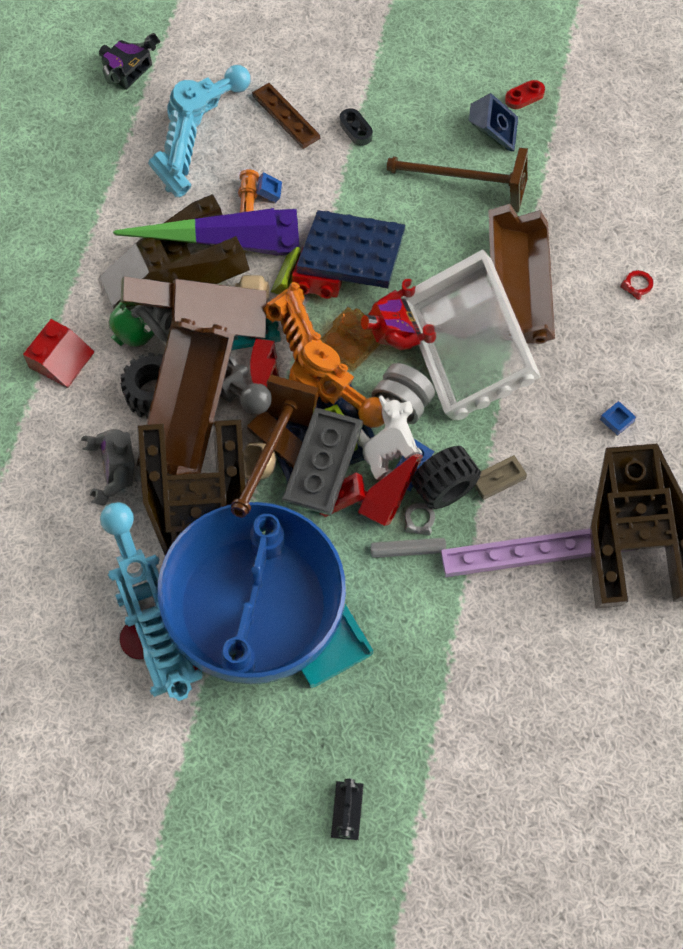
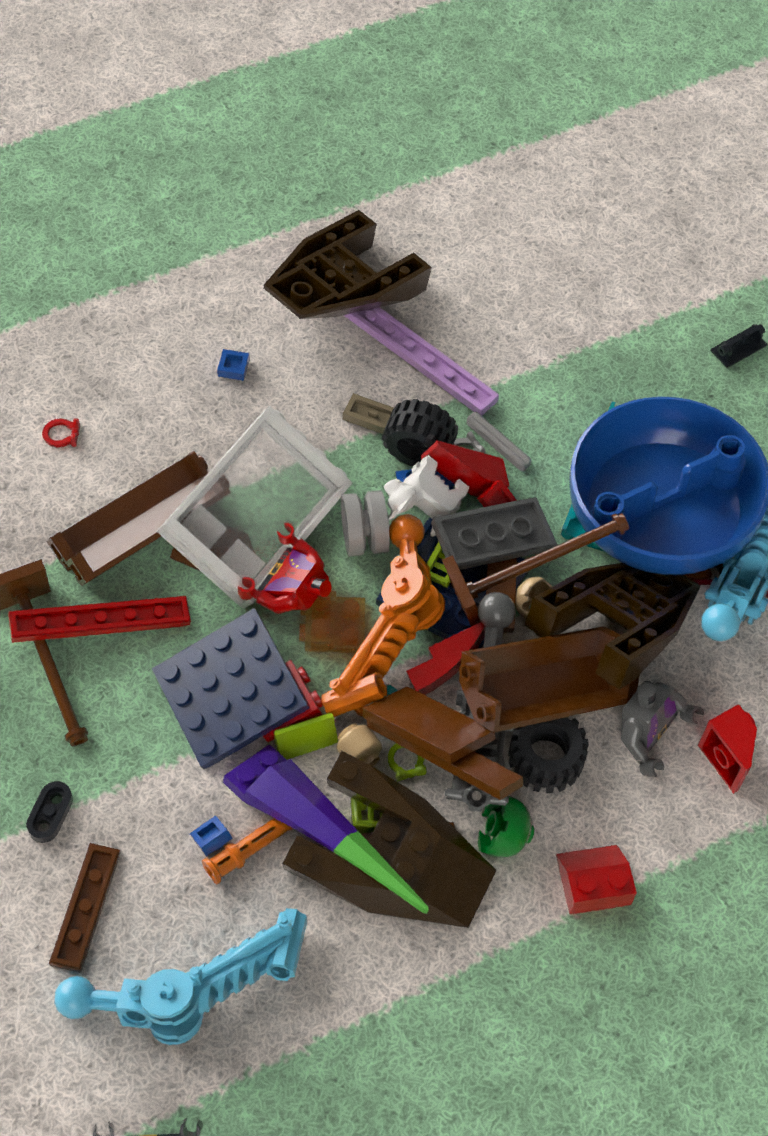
camera: 135 degrees left, 5 degrees down
(52, 484) = (730, 745): none -> red slope
(460, 212) = (98, 618): none -> red tile

